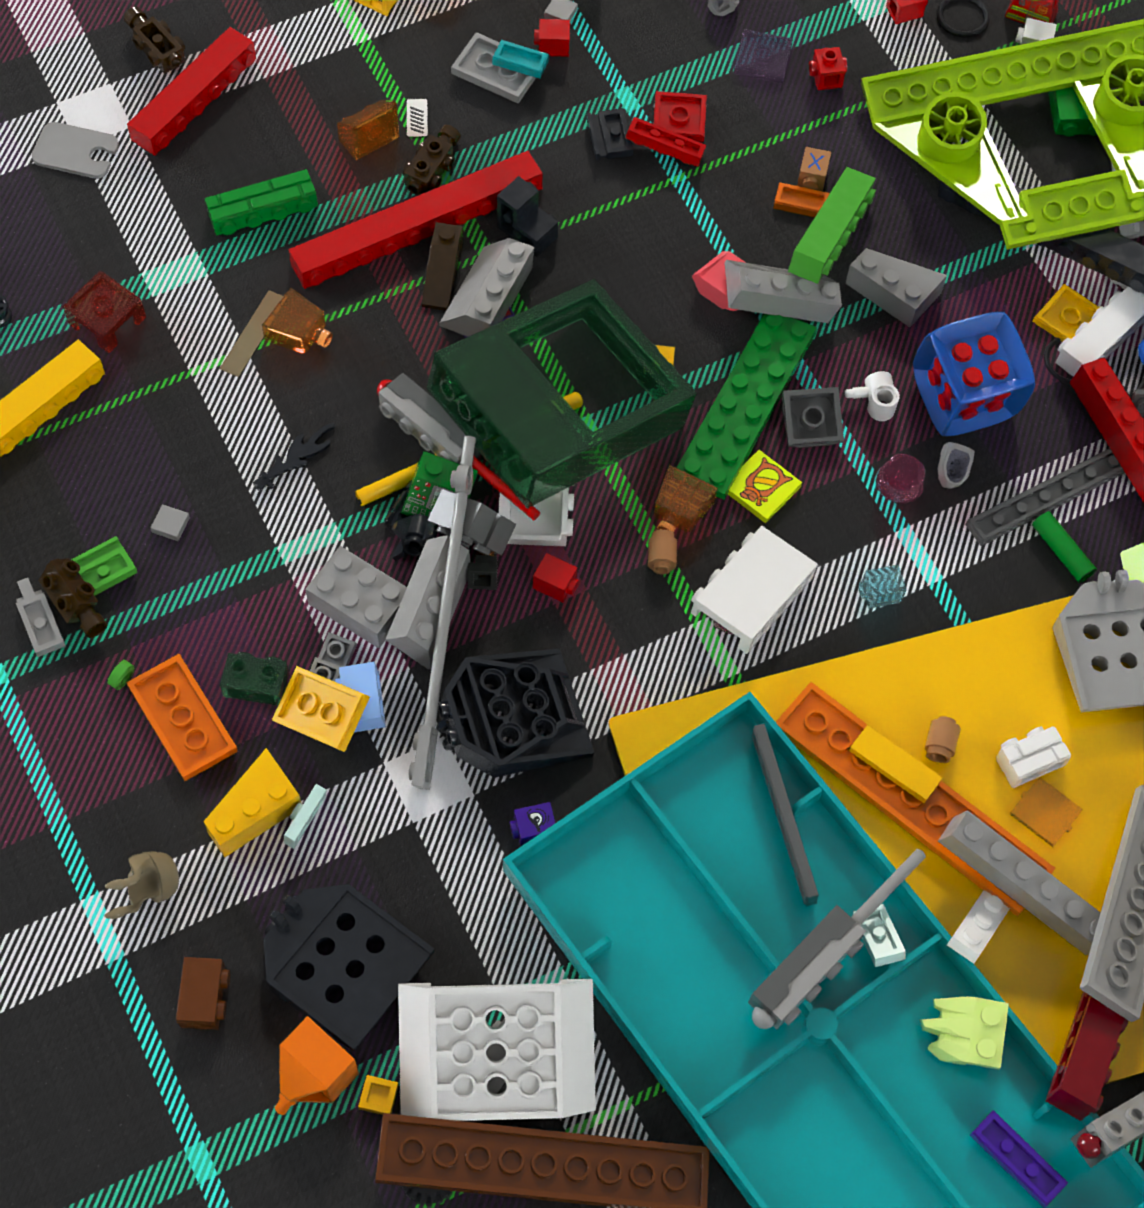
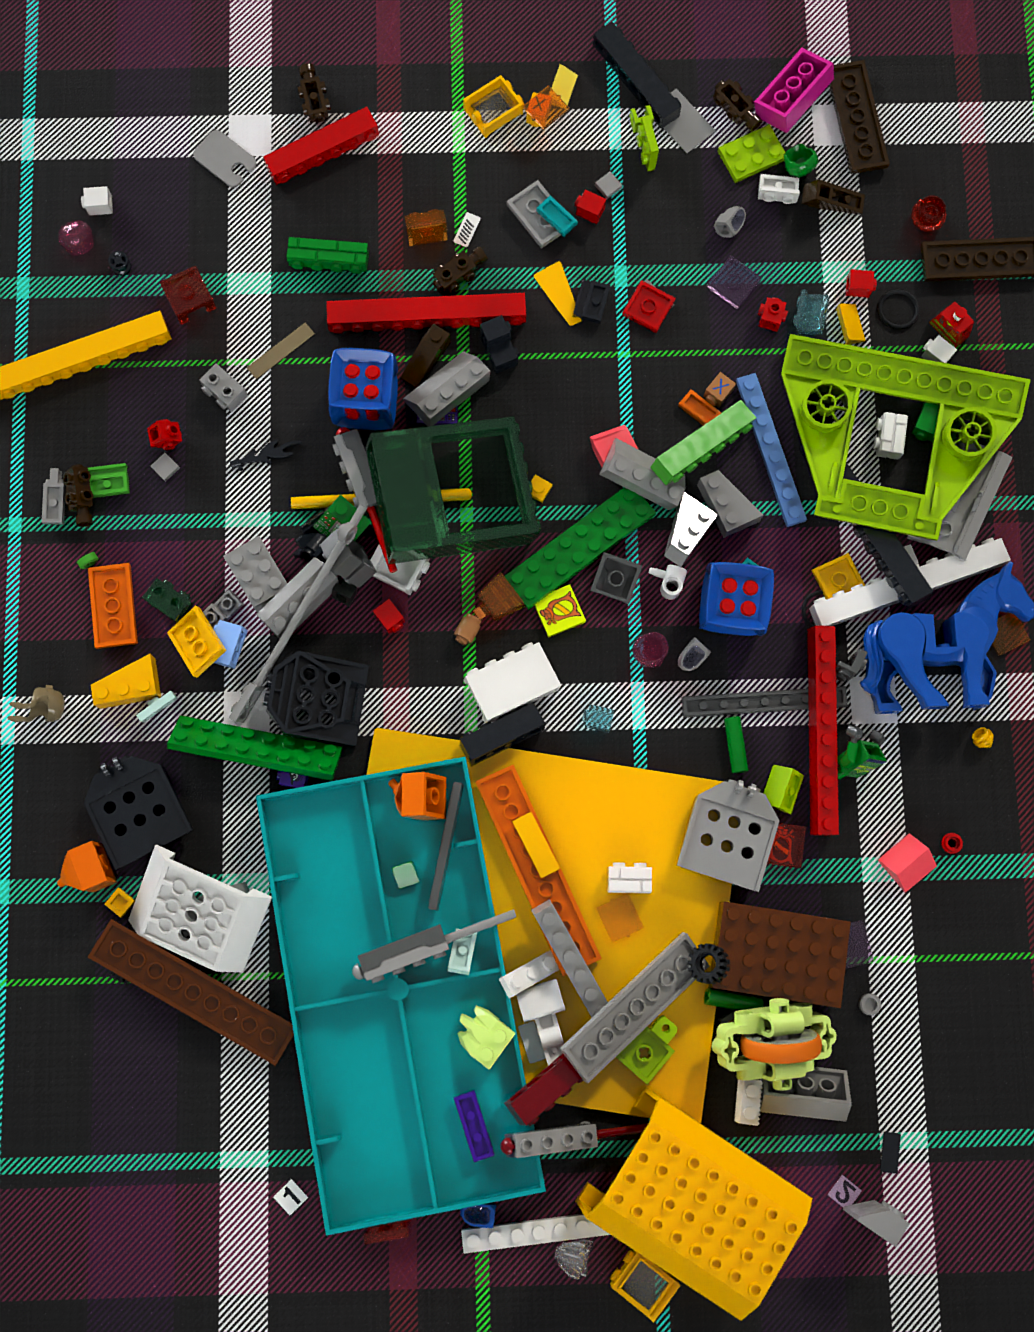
camera: 25 degrees right, 15 degrees up
(153, 480) = (164, 434): none -> red brick
(202, 993) = (45, 791): reddish brown brick -> none
(203, 399) = (223, 388): none -> light grey brick
(296, 324) = (309, 358): clear orange torso -> none
(388, 321) = (363, 388): none -> blue piece
(464, 808) = (255, 747): none -> green plate
(558, 137) = (556, 287): none -> yellow sticker
(665, 141) = (626, 324): red plate -> none
(718, 763) = (420, 795): none -> orange piece
(750, 875) = (405, 874): none -> slope
(776, 651) = (502, 734): none -> black brick
(868, 326) = (688, 528): none -> wedge
(871, 52) = (811, 313): none -> clear light blue bracket
(915, 215) = (771, 451): none -> medium blue plate
(917, 46) = (850, 323): none -> yellow slope
(942, 739) = (577, 841): medium nougat brick -> none
(1012, 964) = (540, 1004): none -> white plate
(1036, 141) = (891, 435): none -> white brick
(1037, 1027) = (531, 1042): none -> white sticker

